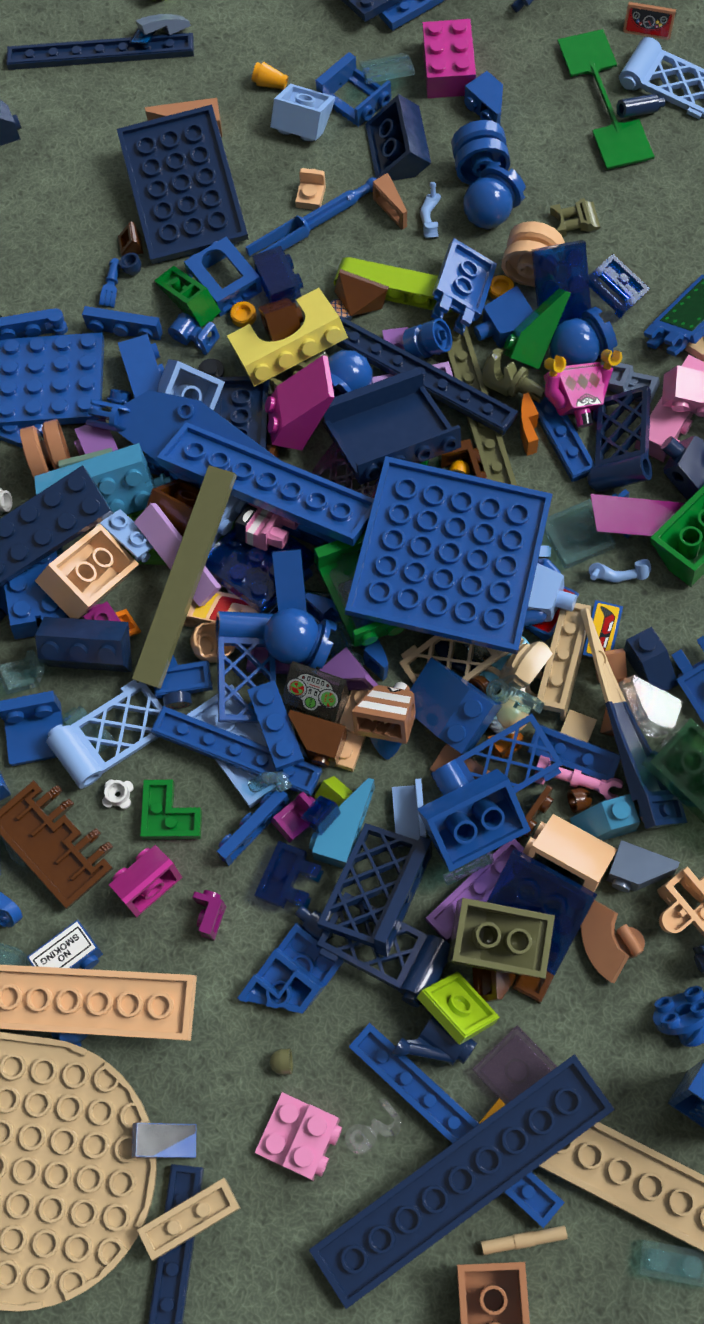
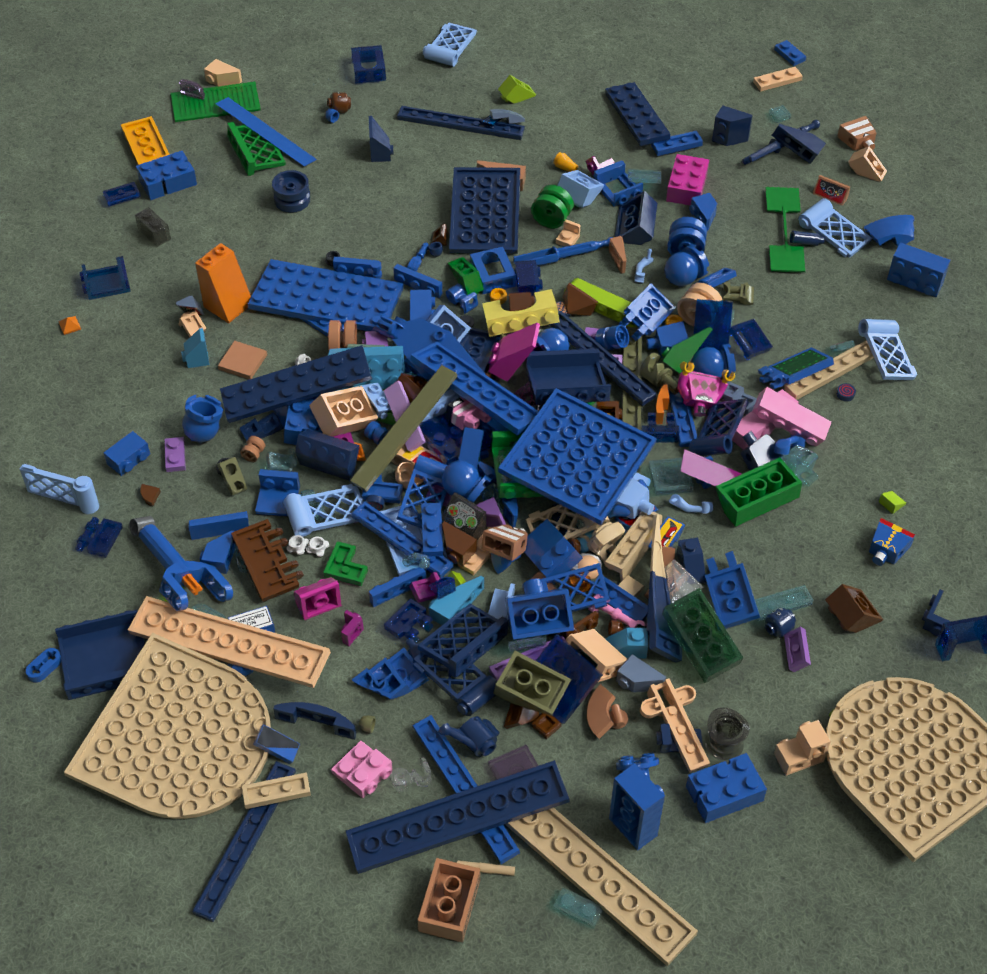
camera: 10 degrees right, 15 degrees down
(83, 795) = (297, 544): none -> white plate
(144, 586) = (375, 432): none -> blue wheel
(168, 1078) = (292, 710): none -> dark blue slope
(275, 153) = (552, 206): none -> green wheel
(311, 71) = (593, 165): none -> magenta bracket
(458, 1007) = (491, 719): lime tile -> none
(522, 701) = (585, 549): clear light blue plate -> none
(535, 472) = (664, 433): none -> clear blue plate
(538, 202) = (718, 277): none -> blue tile

